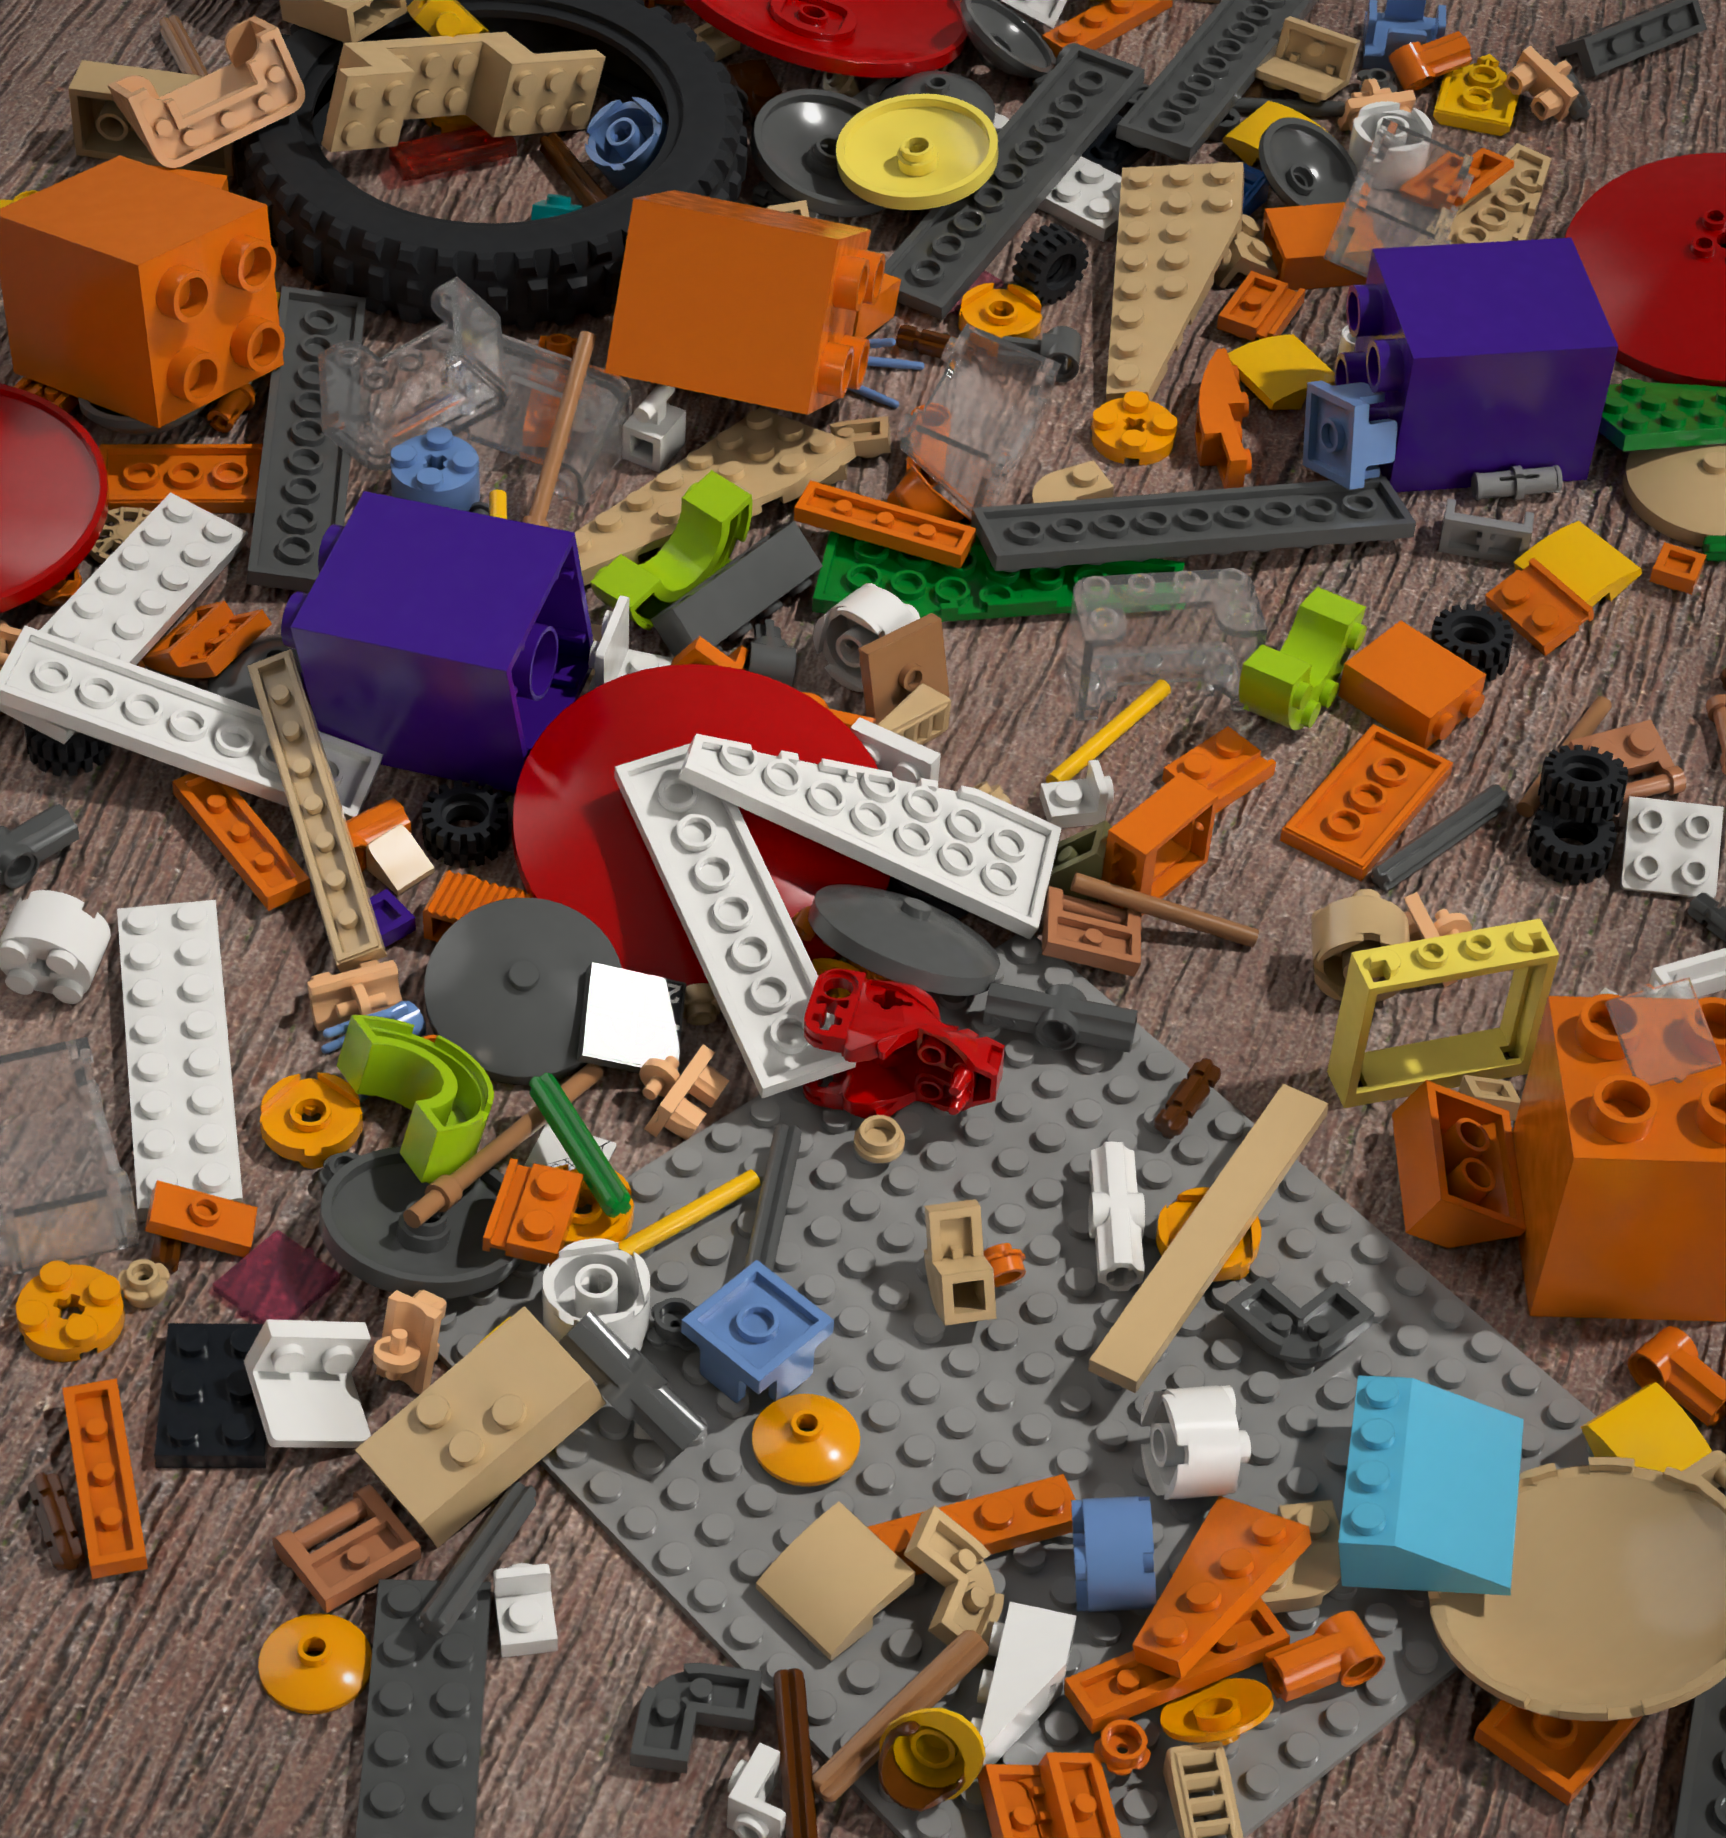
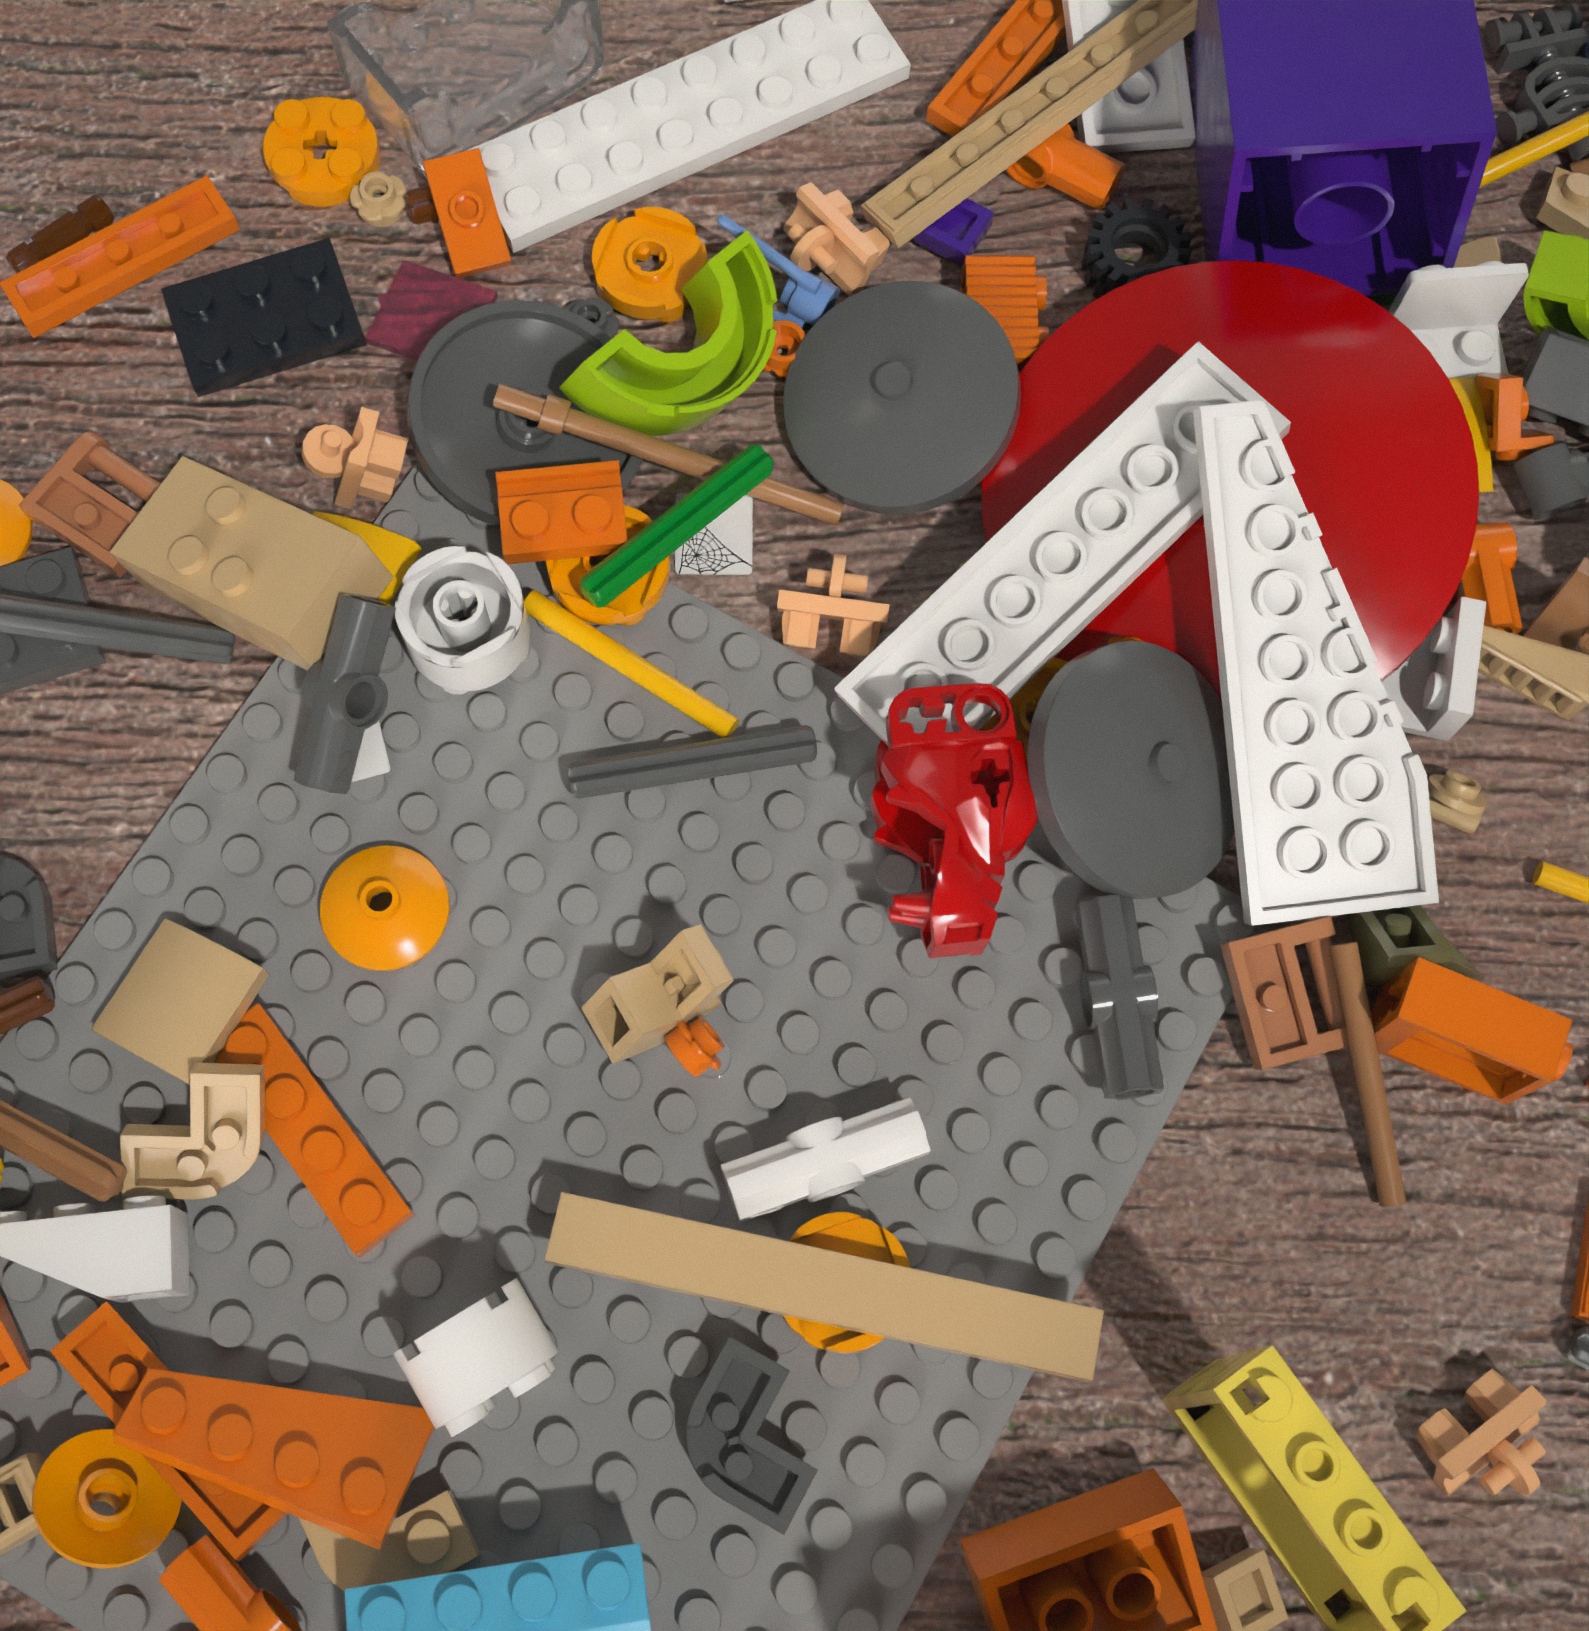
camera: 70 degrees right, 25 degrees up
(306, 1383) = (266, 392): white bracket -> none
(397, 860) = (1052, 211): slope -> none
(524, 1610) = (75, 701): white bracket -> none
(629, 1018) = (901, 519): tile -> none
(668, 1314) = (481, 699): dark grey plate -> none
(757, 1334) = (477, 802): medium blue panel -> none
(879, 1139) = (839, 847): tan plate -> none
(1078, 801) = (1518, 909): white bracket -> none
(1113, 1554) = (279, 1308): medium blue brick -> none
(1126, 1735) = (26, 1394): orange plate -> none
(1187, 1098) = (1059, 1193): reddish brown axle -> none
(1353, 926) = (1411, 1350): tan brick -> none

